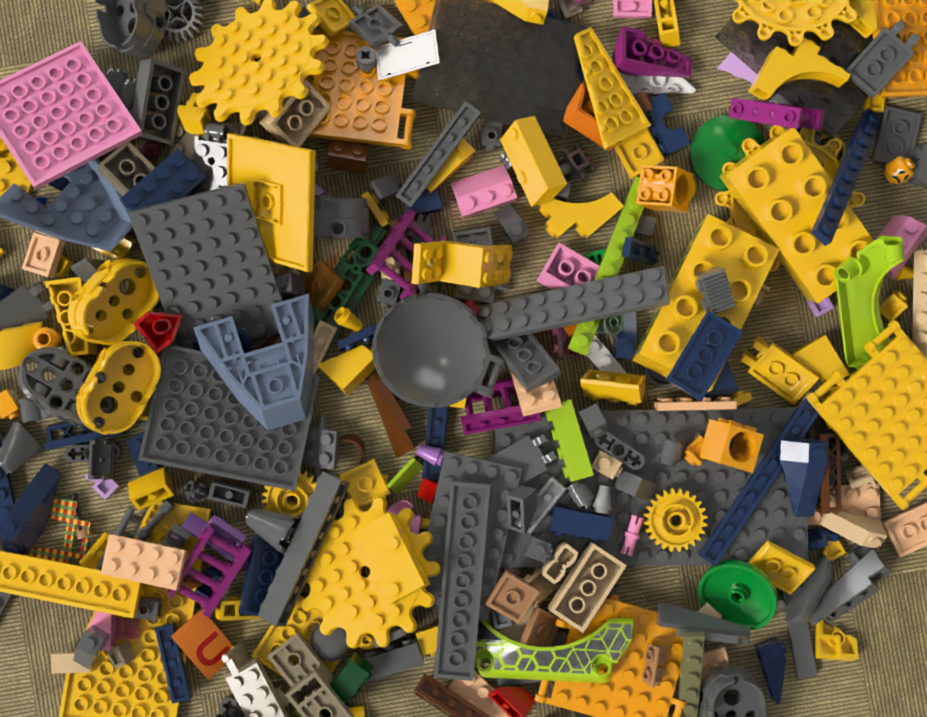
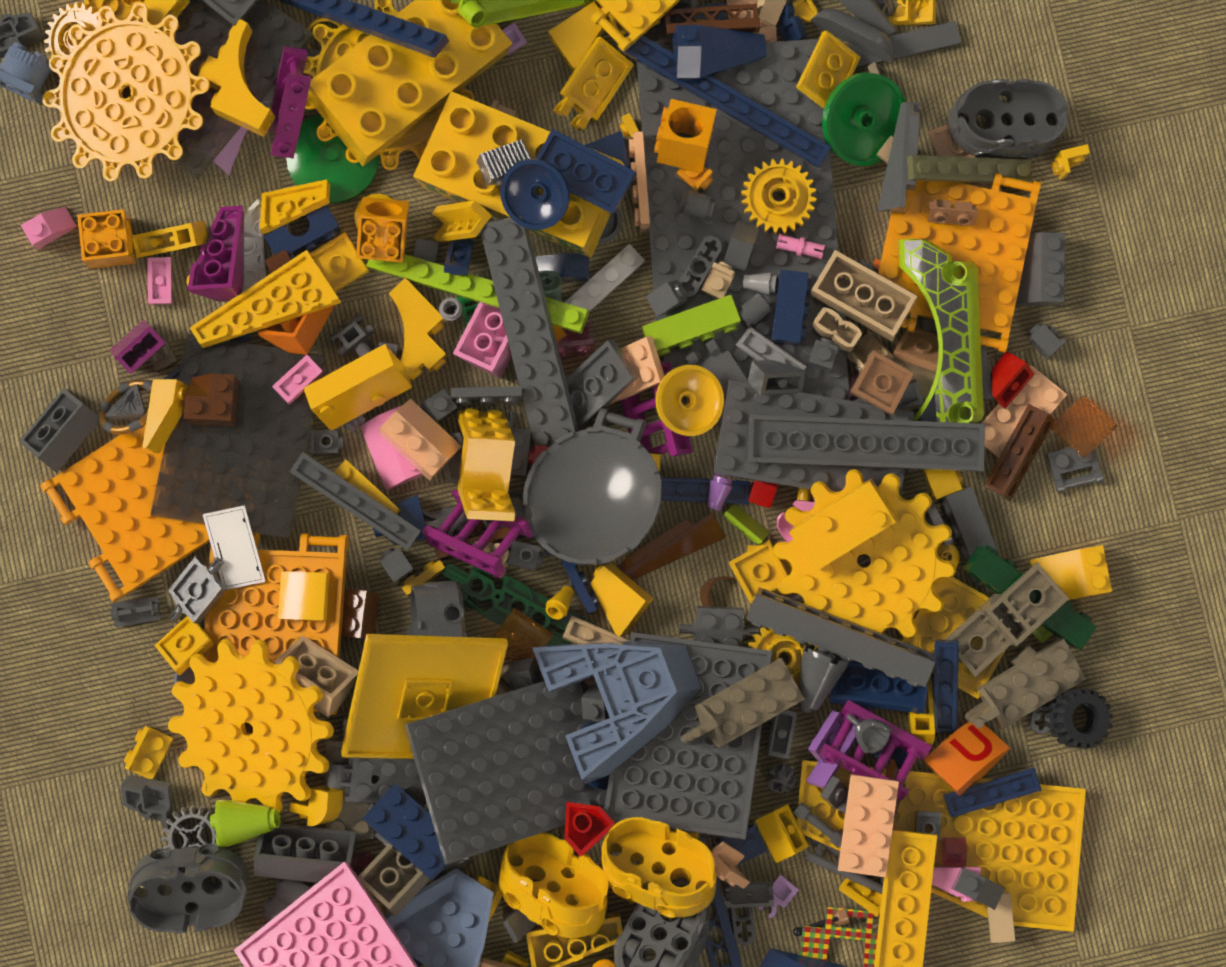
camera: 90 degrees left, 5 degrees down
(121, 655) = (987, 857): dark tan slope -> none
(122, 441) = (725, 861): none -> light nougat bracket
(183, 50) = (241, 821): none -> lime cone
(220, 568) = (871, 734): none -> dark grey piece
(249, 466) = (746, 704): none -> dark tan hinge
(260, 340) = (593, 705): none -> dark grey brick
(262, 631) = (946, 686): none -> dark blue tile
(331, 646) = (958, 599): dark grey piece -> none
(362, 108) = (303, 596): none -> yellow slope
(363, 63) = (245, 599): dark grey wheel -> none
(488, 210) = (419, 439): none -> light nougat slope
(503, 446) = (703, 397): none -> yellow dish
(521, 250) = (487, 395): none -> dark grey plate
(528, 41) = (212, 400): none -> reddish brown slope
(544, 113) = (297, 378): none -> bright pink plate
(598, 239) = (449, 304): none -> light grey cone
(613, 386) = (624, 278): yellow slope -> none
(668, 254) = (460, 220): none -> yellow fence
(683, 303) = (521, 194): none -> dark blue dish
(691, 116) = (291, 203): none -> yellow wing
(773, 663) = (945, 73): clear blue slope -> none

